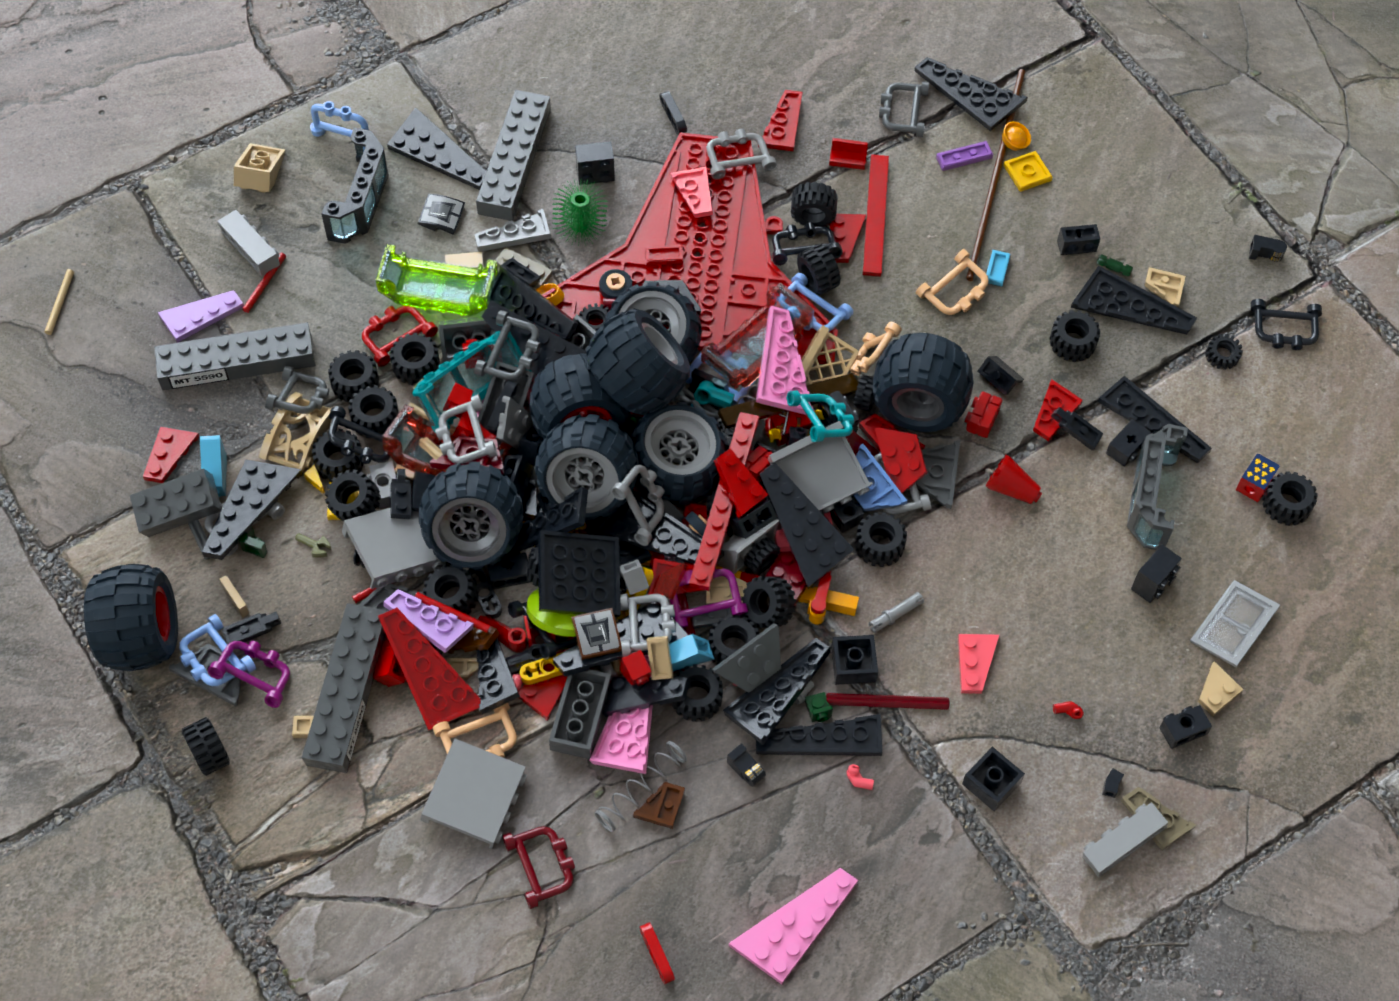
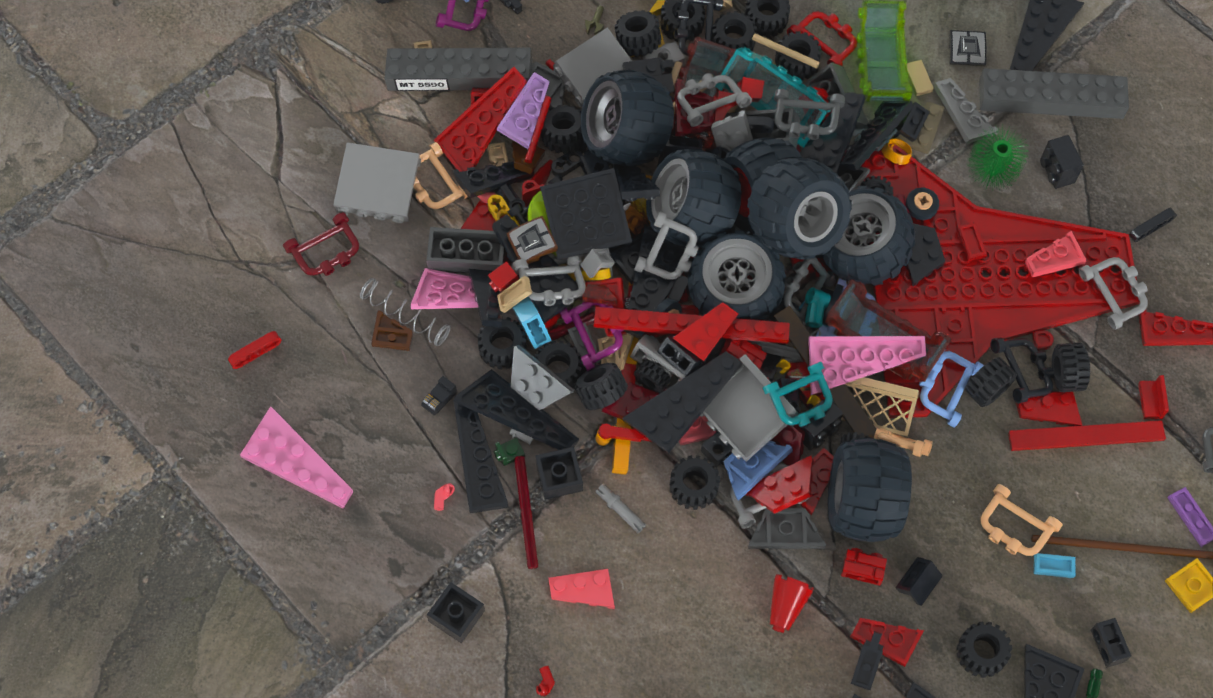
camera: 80 degrees right, 5 degrees up
(414, 362) = (782, 49): none -> tan bar

